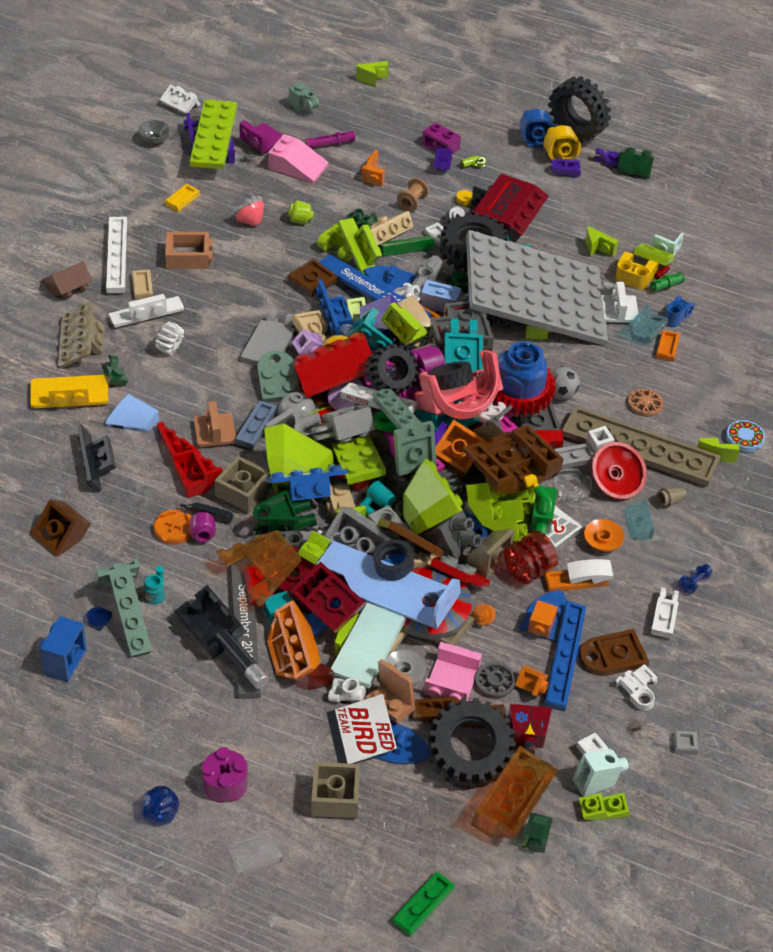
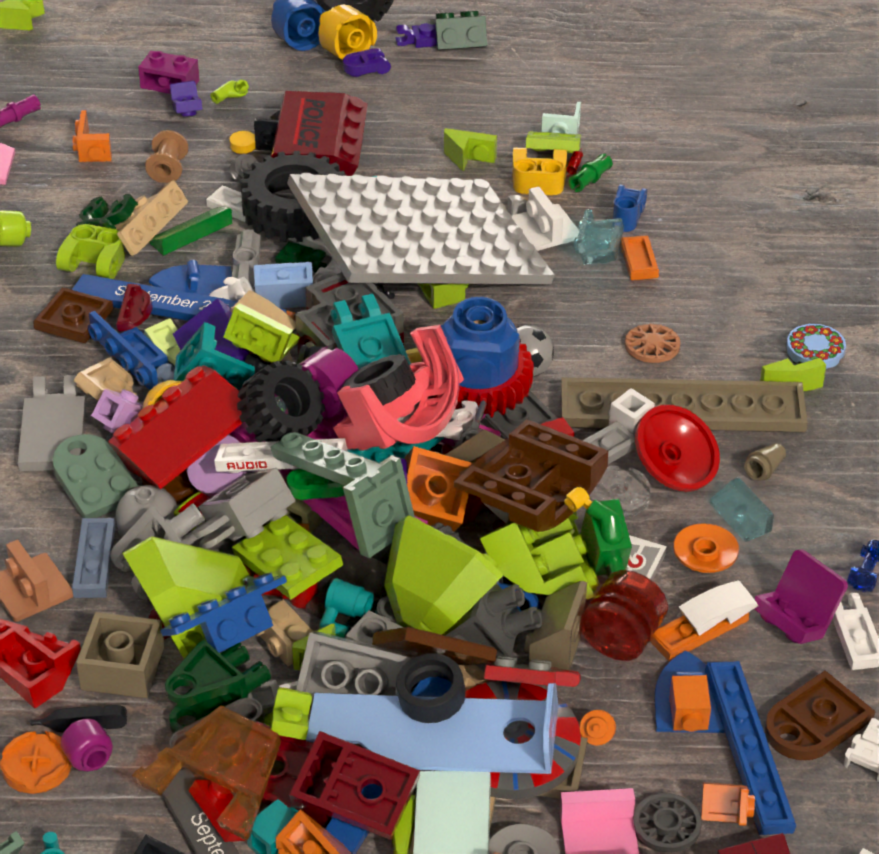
camera: 20 degrees left, 5 degrees down
(347, 284) = (134, 308): none -> dark red tile
(361, 243) = (130, 243): lime bracket -> none
(642, 585) = (803, 599): none -> magenta bracket

